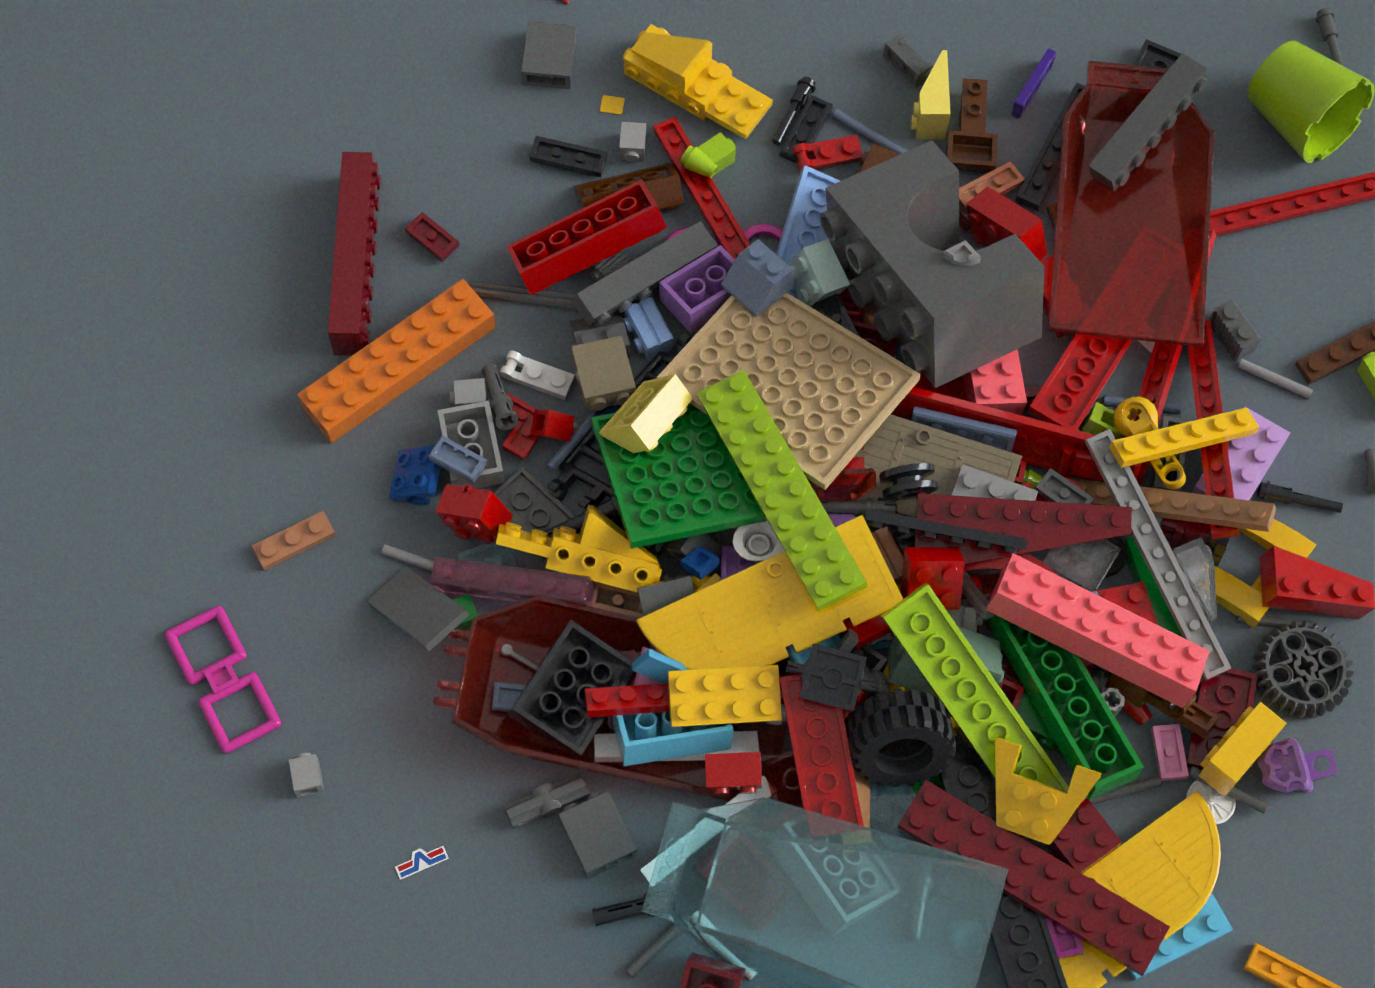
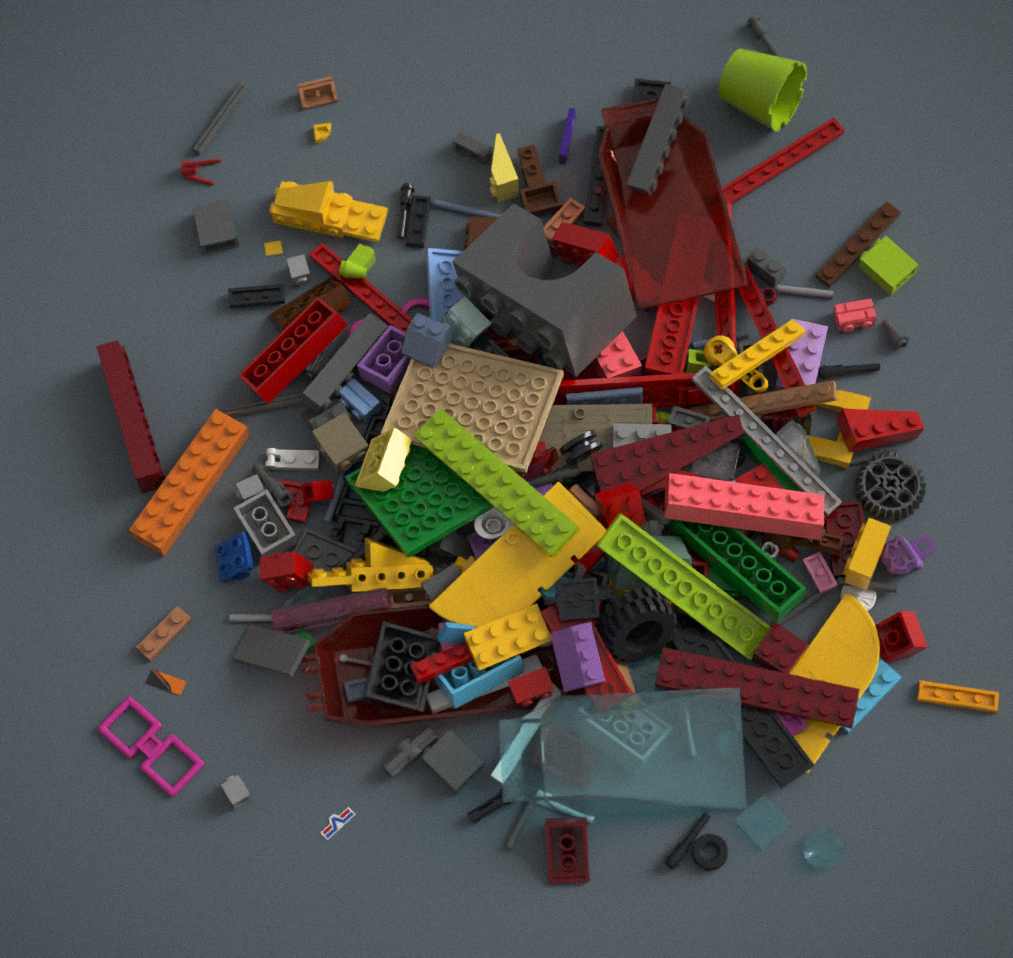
camera: 15 degrees left, 0 degrees up
(273, 603) = (166, 682): none -> sticker
(432, 237) = (180, 386): dark red plate -> none
(457, 459) = (261, 537): sand blue plate -> none
(700, 562) = (457, 552): blue plate -> none
(806, 754) = (577, 657): none -> medium lavender slope
(828, 152) = (440, 233): red plate -> none
(956, 533) = (625, 472): black plate -> none
(963, 254) = (565, 279): light grey tile -> none
(1032, 806) = (740, 639): yellow wing -> none
(1228, 364) = (769, 292): none -> dark red plate
(1249, 874) = (900, 636): none -> red slope
(1330, 430) = (854, 315): none -> coral brick

